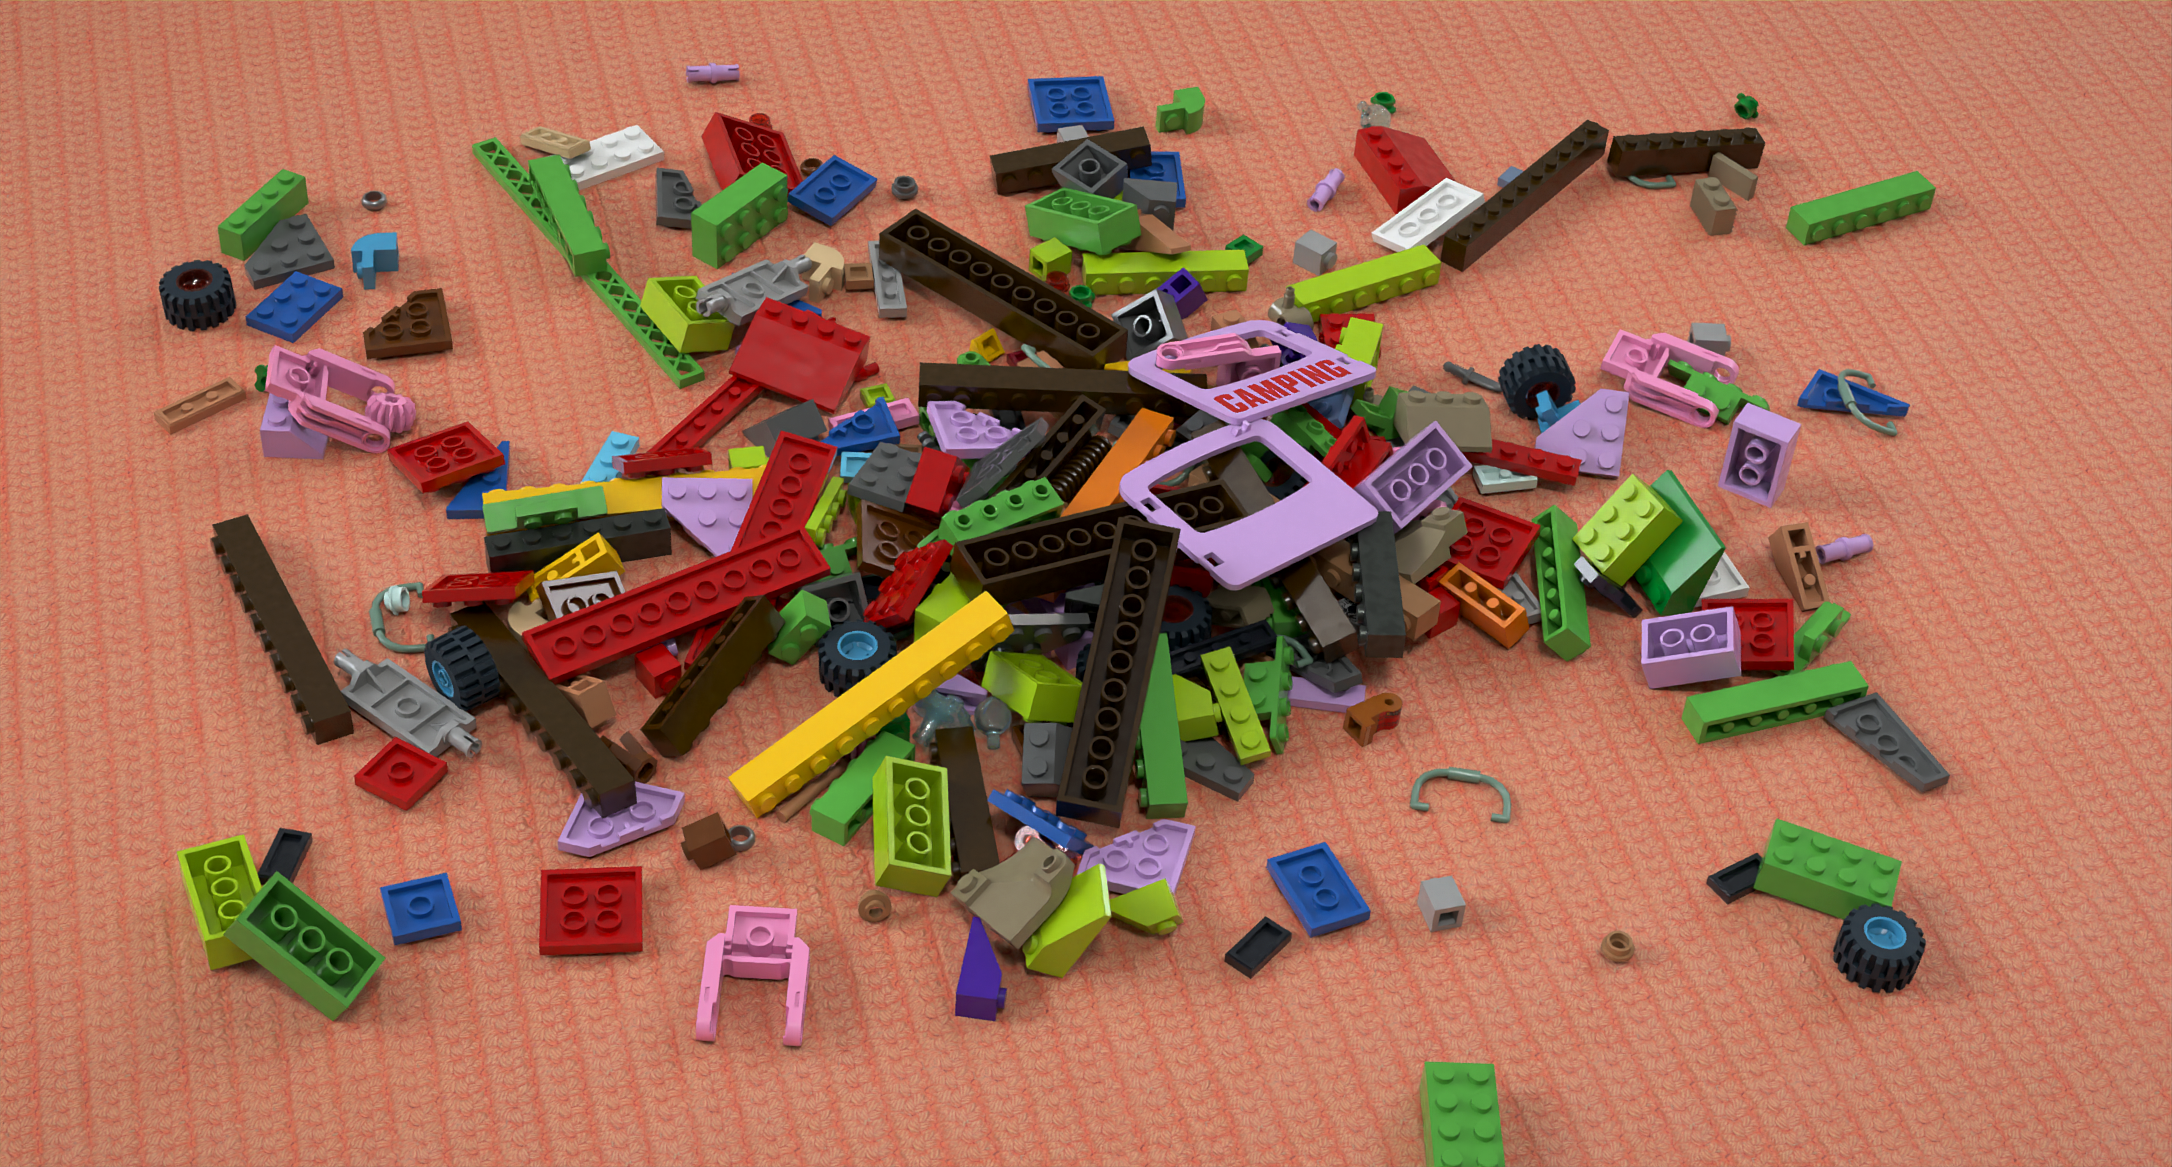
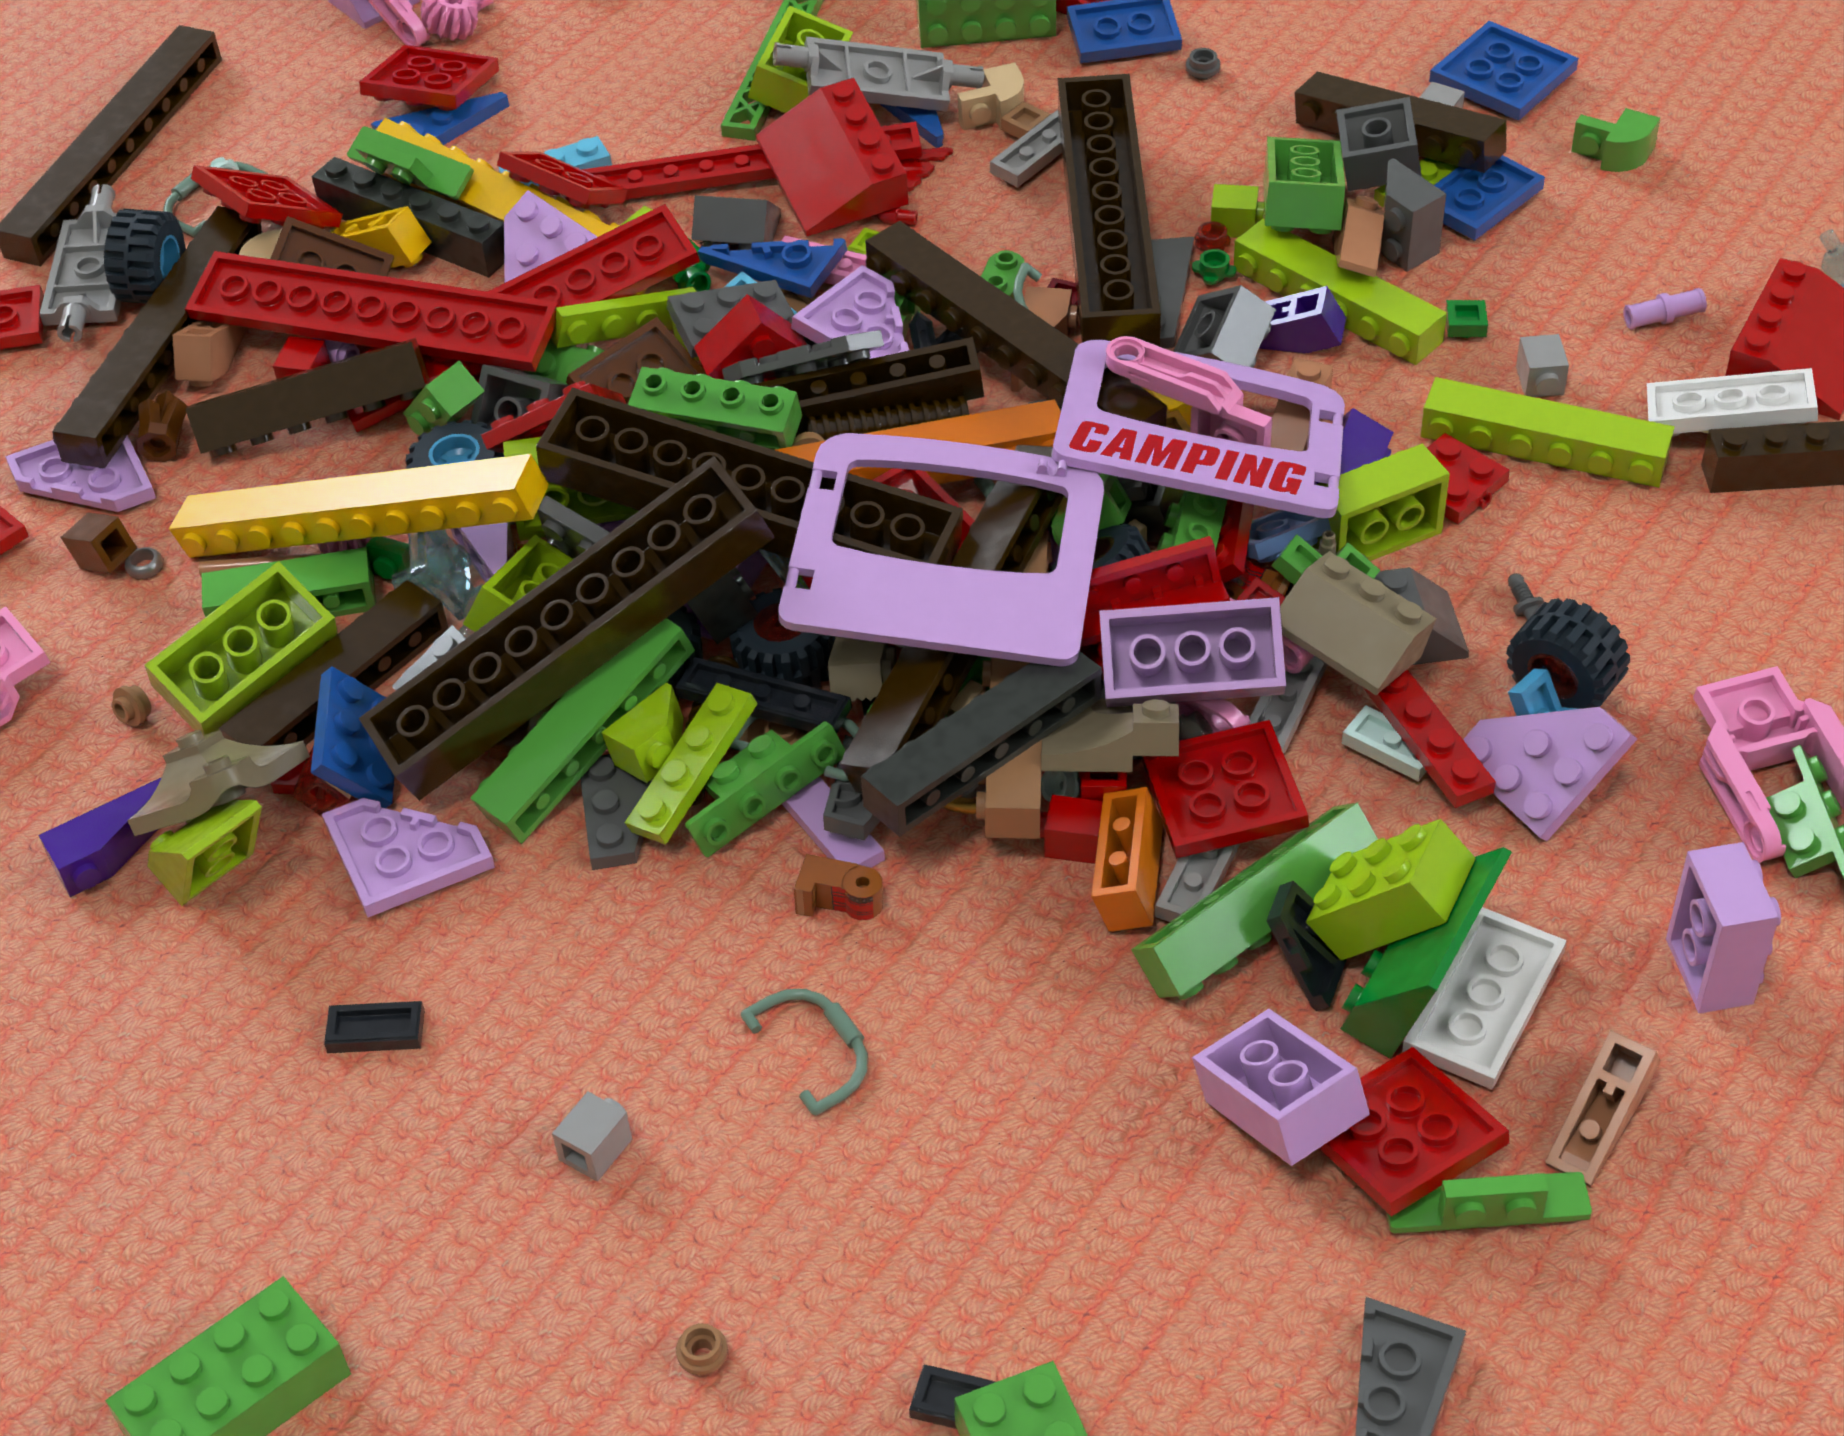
camera: 55 degrees right, 5 degrees up
(987, 345) = (1045, 257): yellow slope -> none
(1148, 908) = (320, 900): lime slope -> none
(1285, 310) = (1404, 412): dark tan piece -> none
(1318, 889) = (507, 1017): blue plate -> none
(1771, 702) = (1316, 1234): bright green brick -> none
(1844, 548) = (1709, 1129): lavender pin -> none

